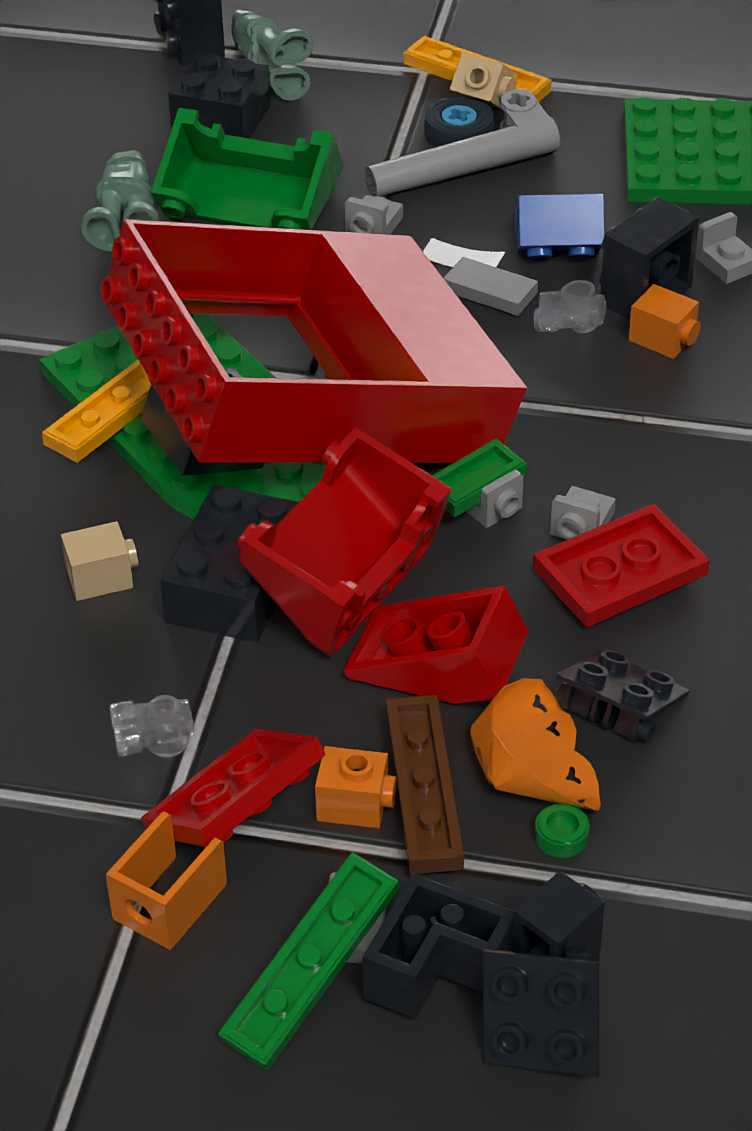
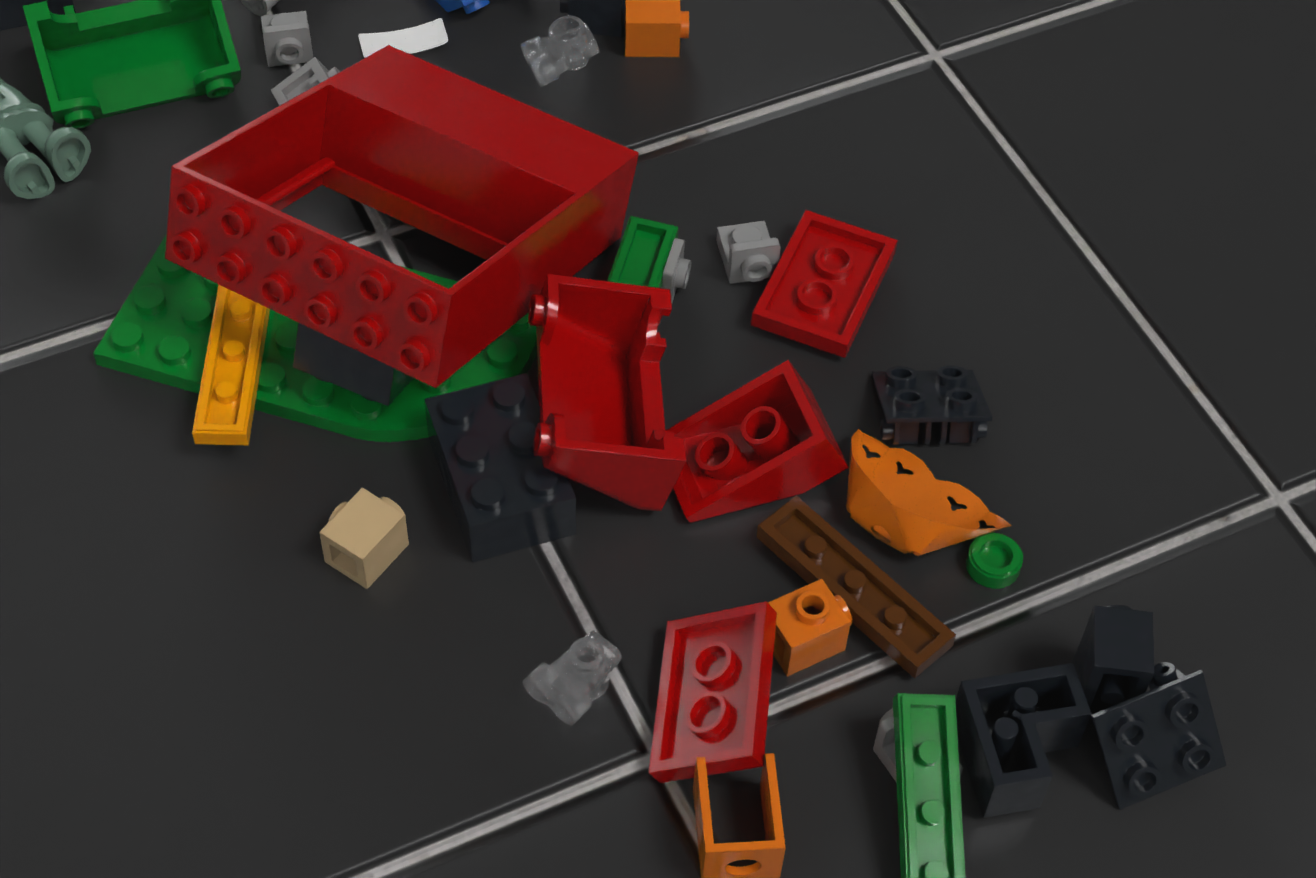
camera: 40 degrees left, 10 degrees up
(491, 286) = (467, 56): light grey tile -> none

